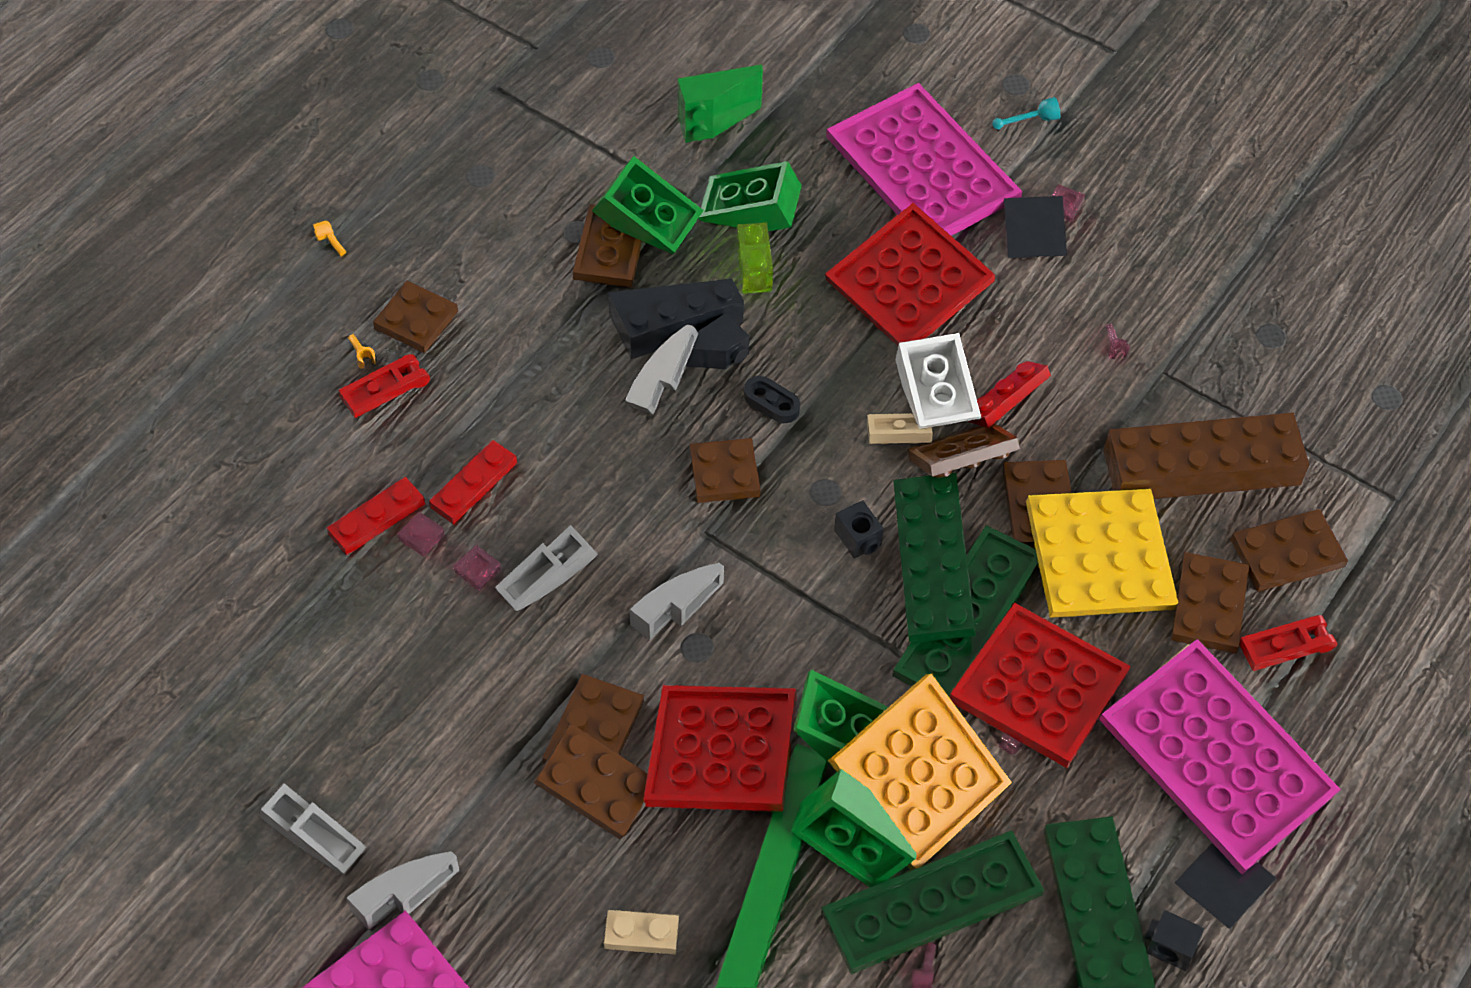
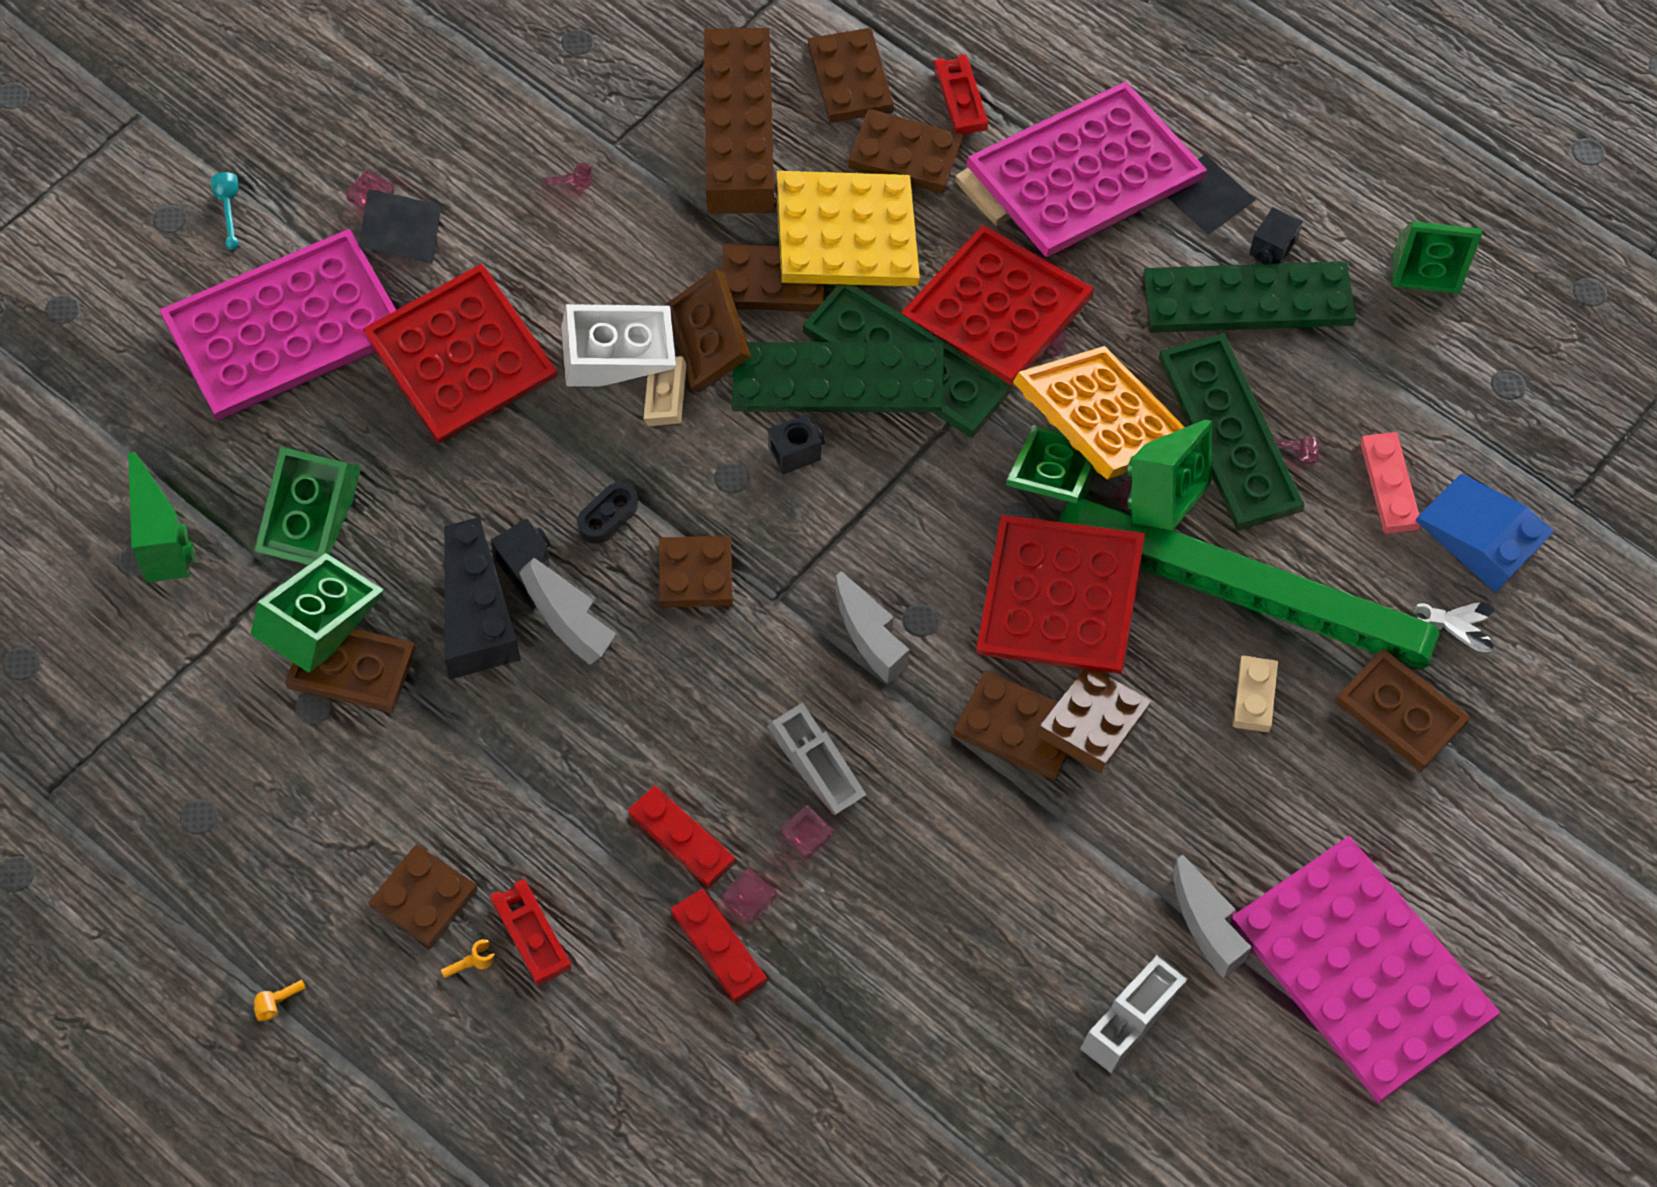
camera: 85 degrees left, 5 degrees up
(754, 258) = (402, 508): clear neon green brick -> none
(1010, 392) = (626, 276): red plate -> none

